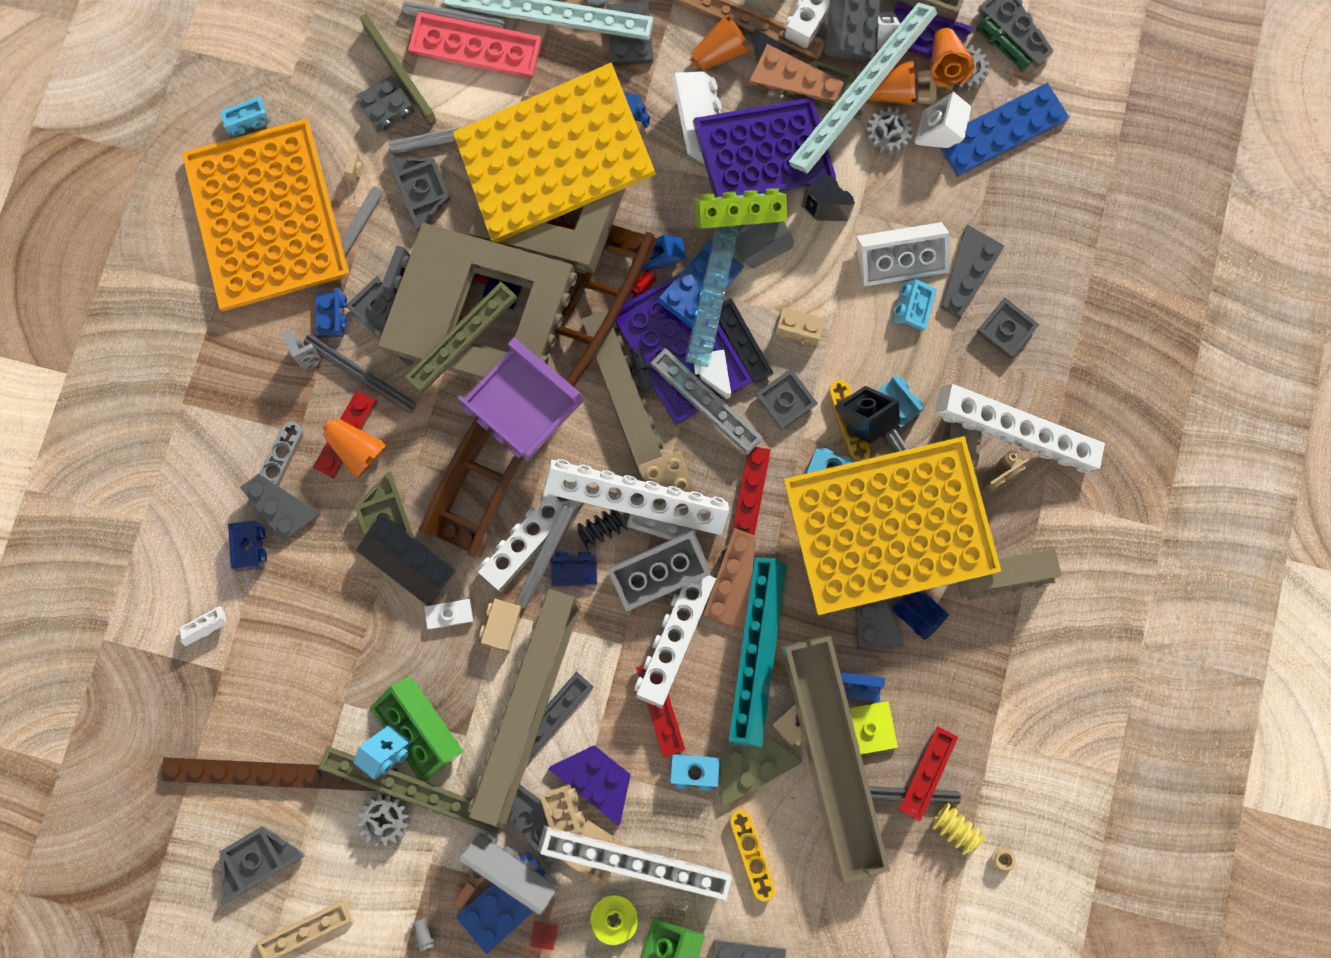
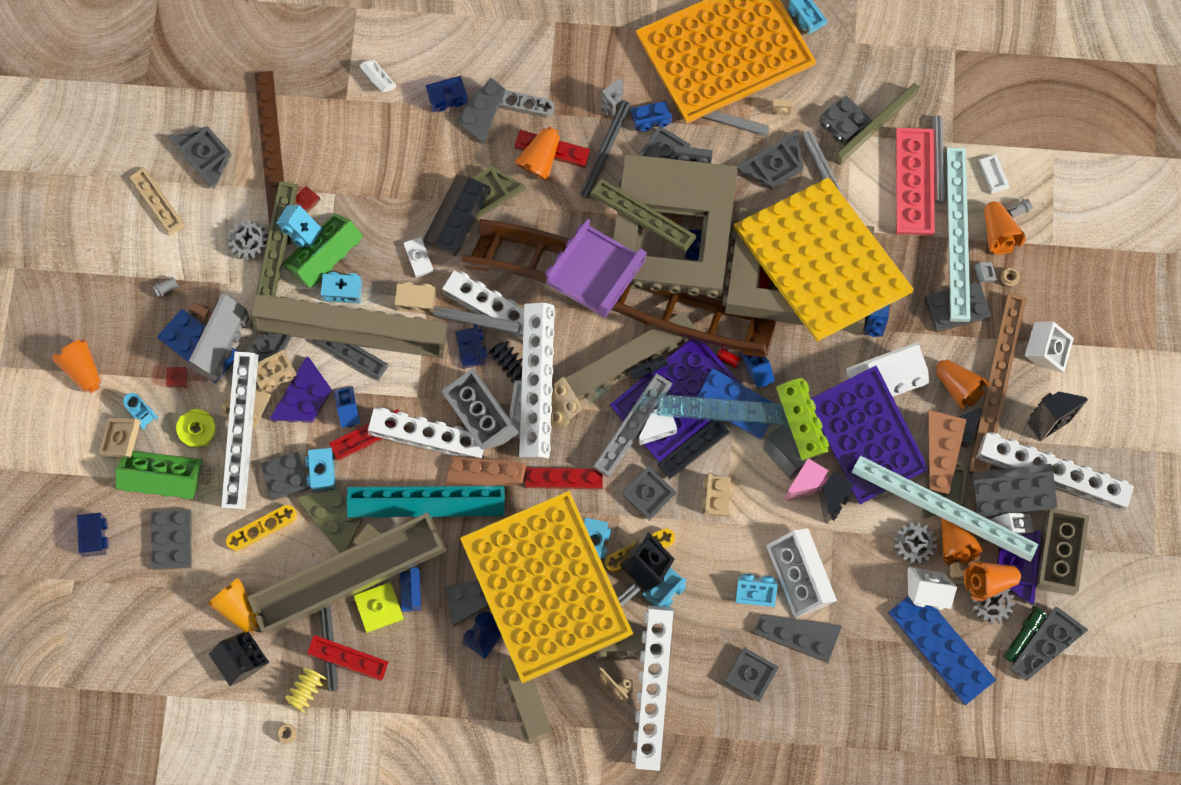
camera: 80 degrees right, 5 degrees down
(344, 738) = (307, 199): none -> clear red plate
(479, 704) = (348, 294): none -> medium azure brick
(621, 728) = (347, 407): none -> blue slope
(692, 817) = (284, 476): none -> dark grey plate
(806, 225) = (809, 480): none -> bright pink slope
(845, 901) = (235, 607): none -> light orange cone
(907, 905) = (238, 657): none -> black slope

